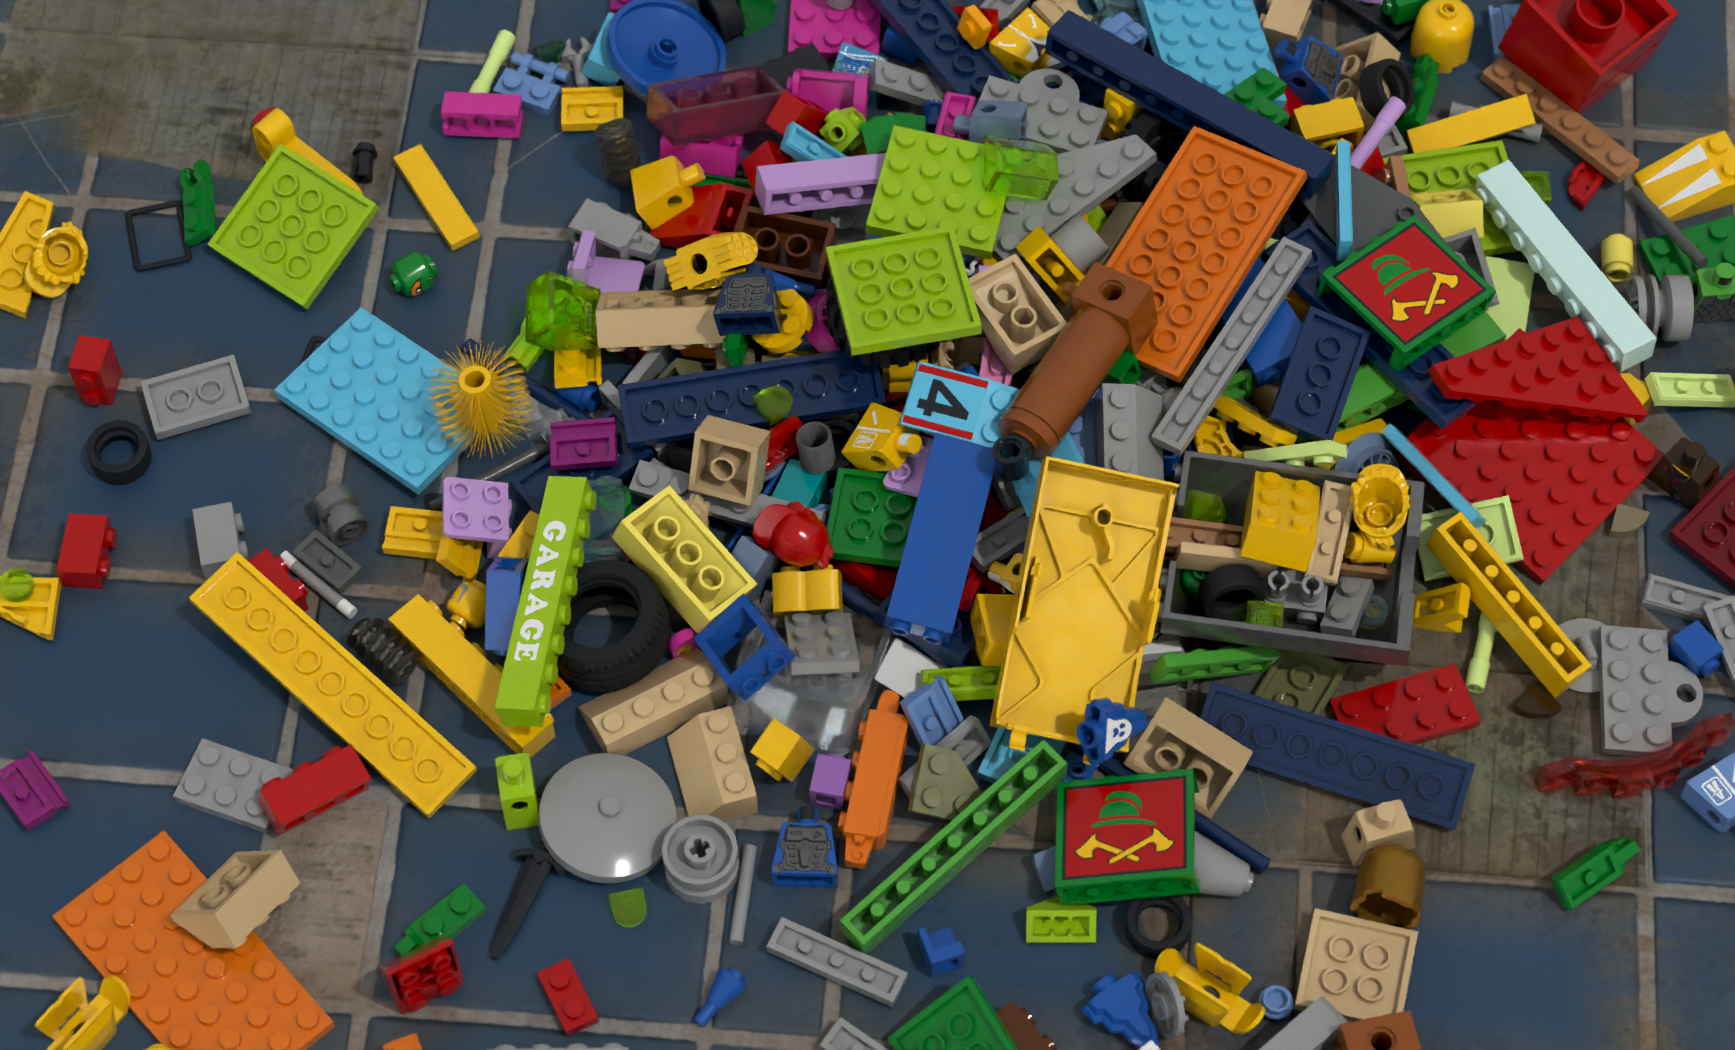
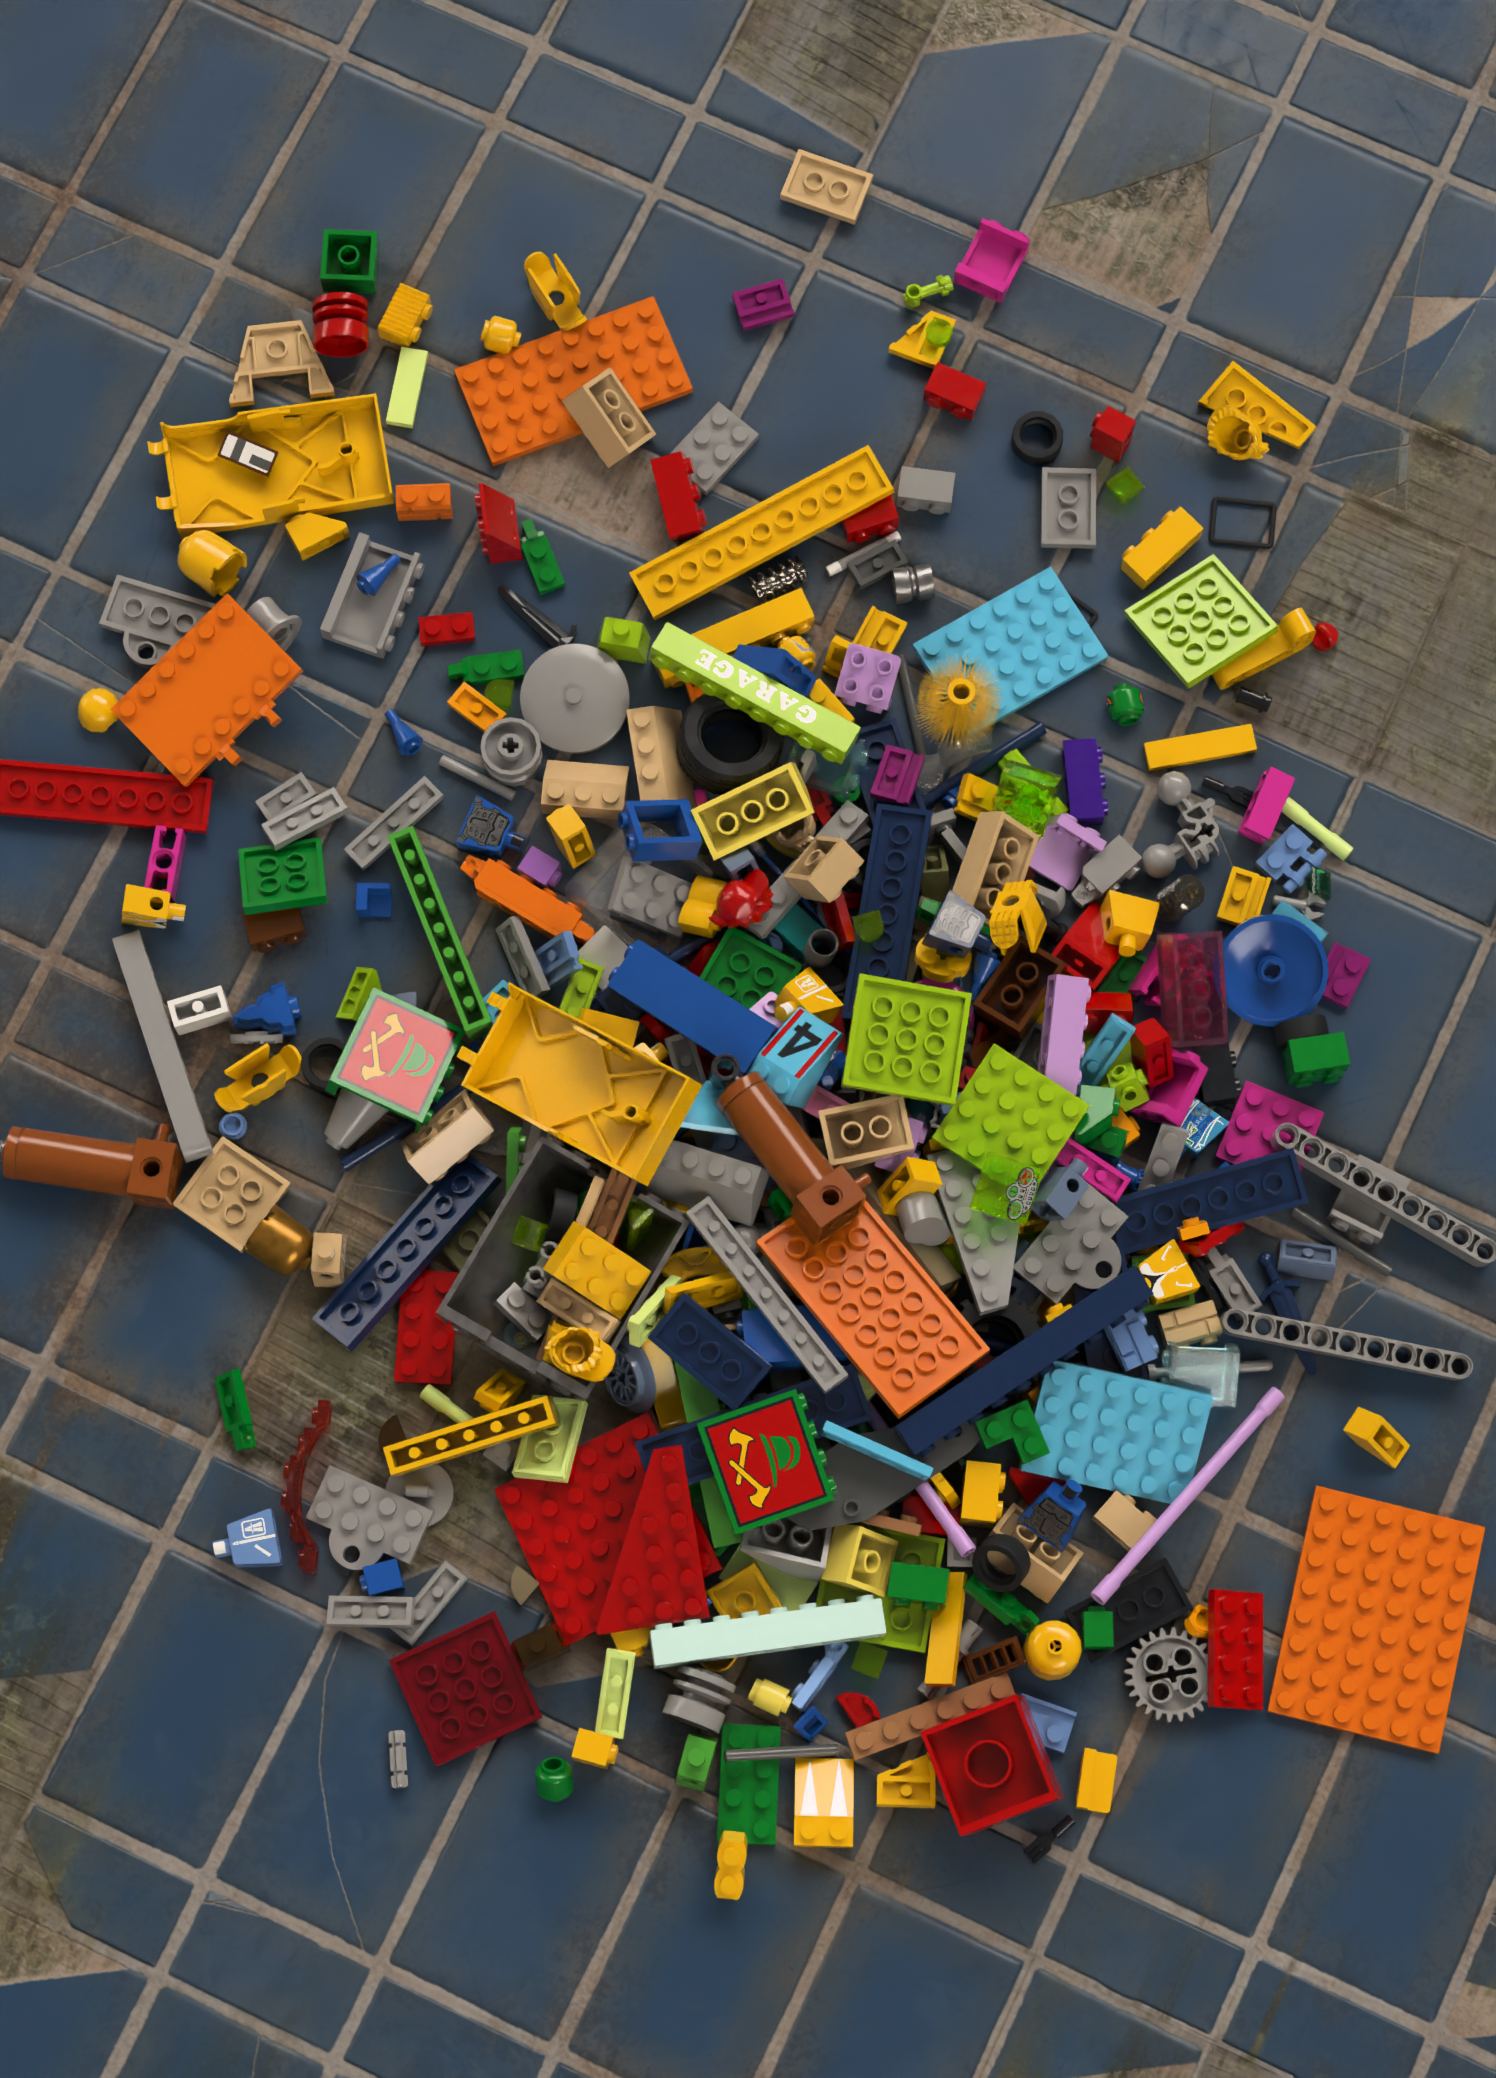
camera: 110 degrees right, 15 degrees up
(151, 351) = (1125, 485): none -> clear neon green plate
(198, 202) = (1259, 557): green hinge -> none
(216, 294) = (1161, 547): none -> yellow brick
(476, 150) = (1236, 794): none -> black piece
(503, 289) = (1084, 781): none -> dark purple brick
(532, 162) = (1161, 859): none -> light grey piece
(600, 930) = (488, 667): none -> green hinge
(603, 529) = (809, 764): none -> light grey tile
(659, 922) = (475, 707): none -> light orange plate
(941, 784) = (497, 946): olive plate -> none
(1107, 728) = (474, 1069): blue rock -> none
(1433, 475) = (602, 1423): medium azure tile -> none
(1443, 155) = (918, 1585): none -> green brick
(1471, 71) = (1017, 1652): none -> reddish brown slope
(1531, 304) = (744, 1592): none -> yellow tile
(1586, 224) = (819, 1672): none -> light blue hinge
(1621, 220) = (810, 1723): none -> blue slope
(1632, 117) = (908, 1785): none -> yellow wing

